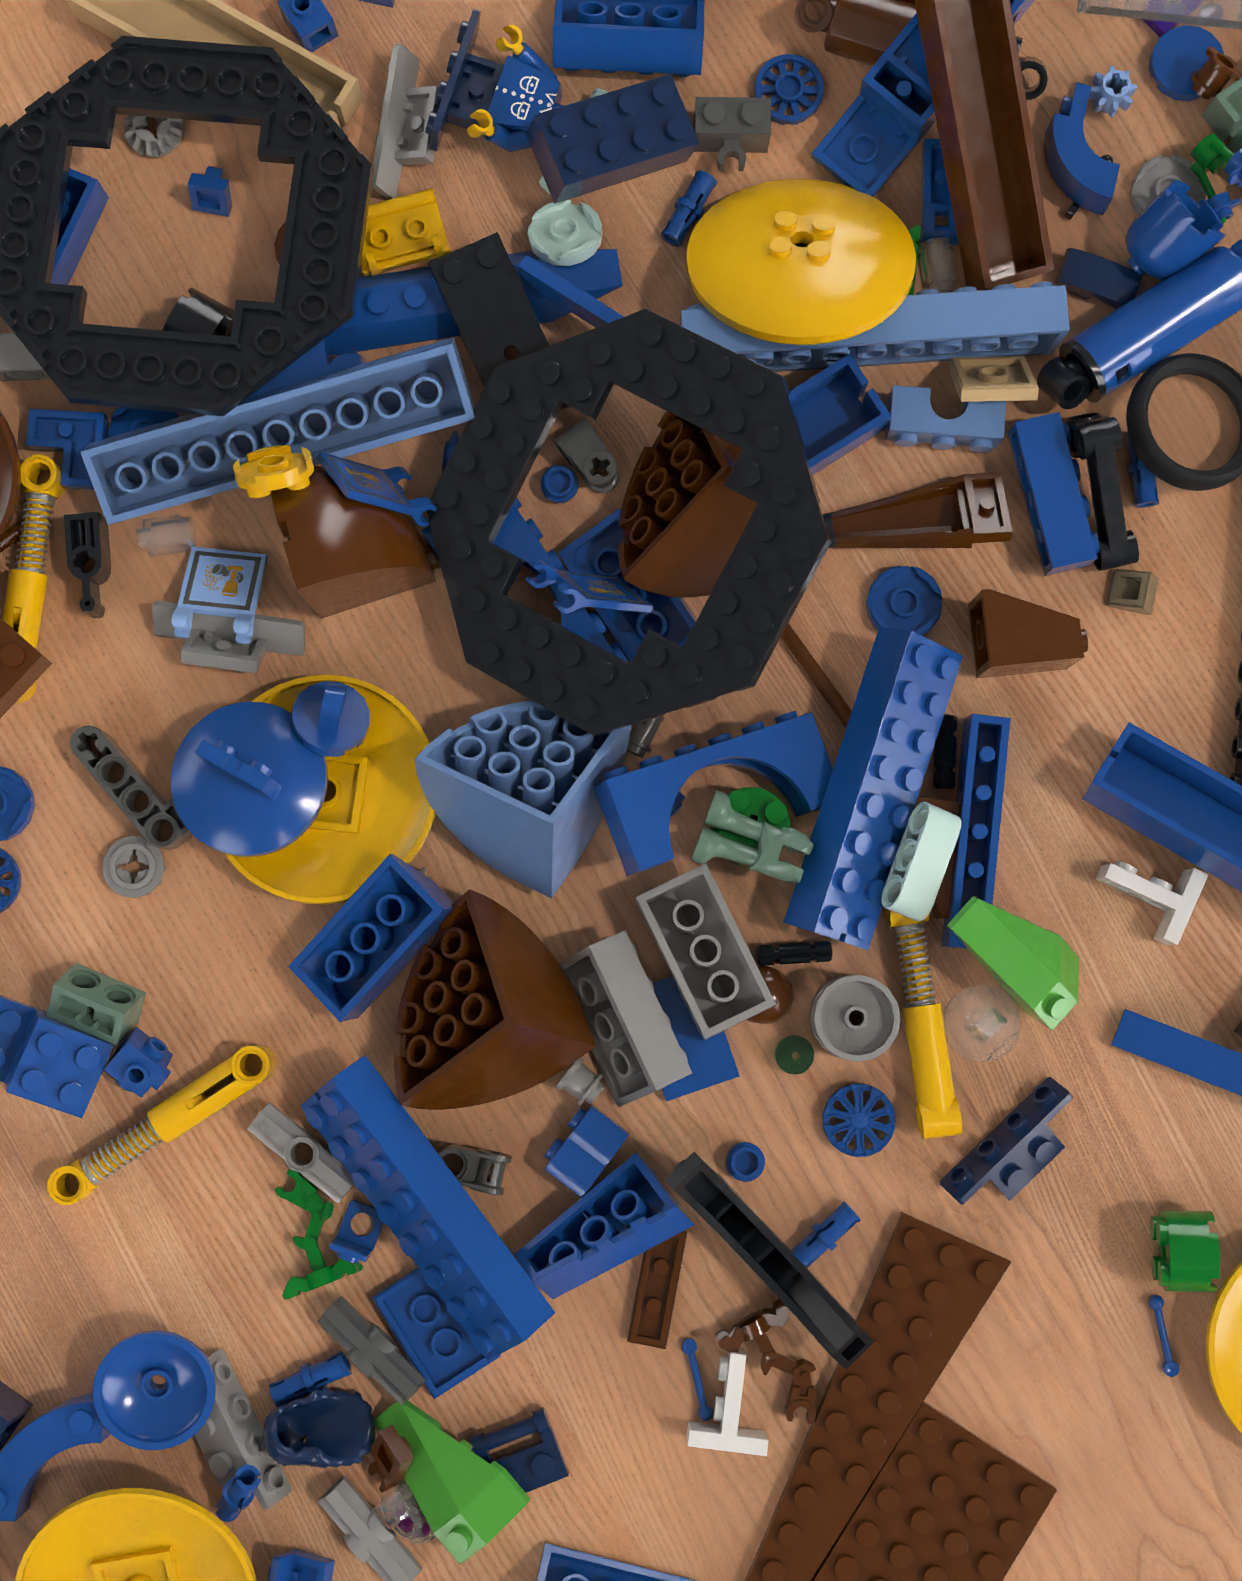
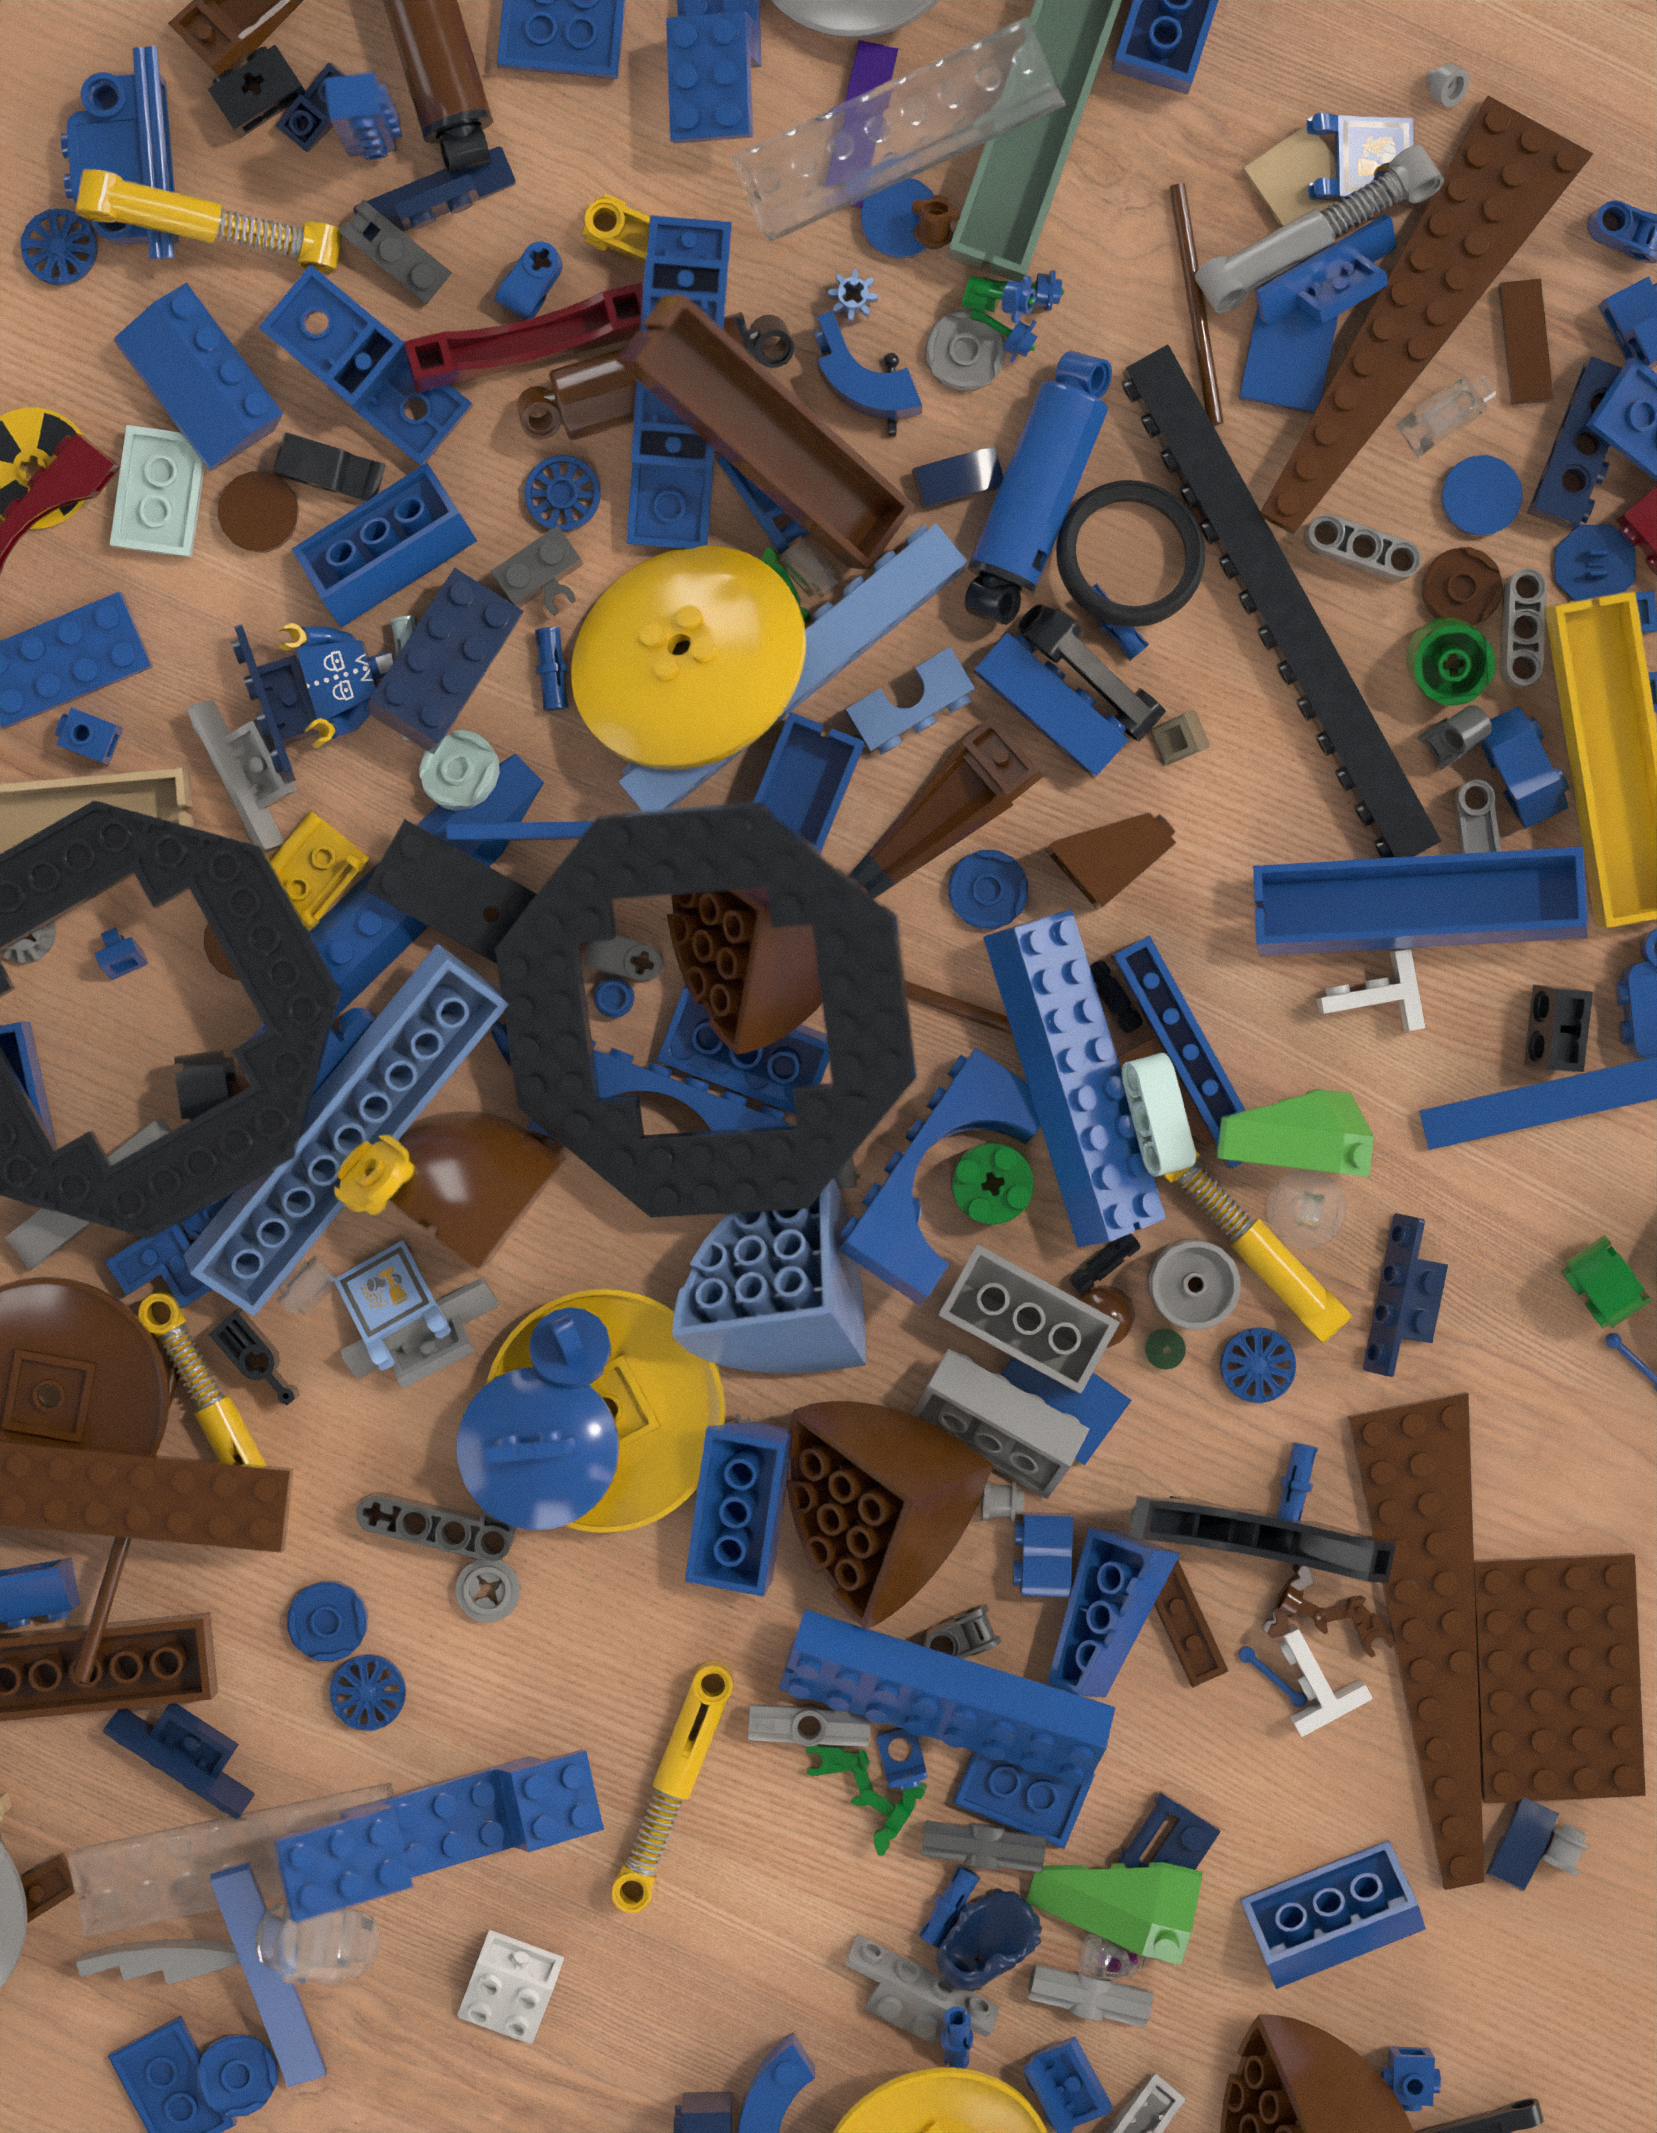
camera: 35 degrees left, 5 degrees up
(96, 1004) = (544, 1727): sand green brick -> none
(139, 1063) = (617, 1749): blue brick -> none
(148, 1412) = (842, 2024): blue dish -> none
(375, 486) = (463, 1122): blue flag -> none
(392, 1458) = (1064, 1920): reddish brown plate -> none
(588, 590) = (714, 1084): blue flag -> none
(745, 1161) = (1186, 1468): blue plate -> none
(769, 839) = (1016, 1187): sand green piece -> none
(993, 379) = (929, 640): tan tile -> none
(1172, 233) = (996, 396): blue cylinder -> none

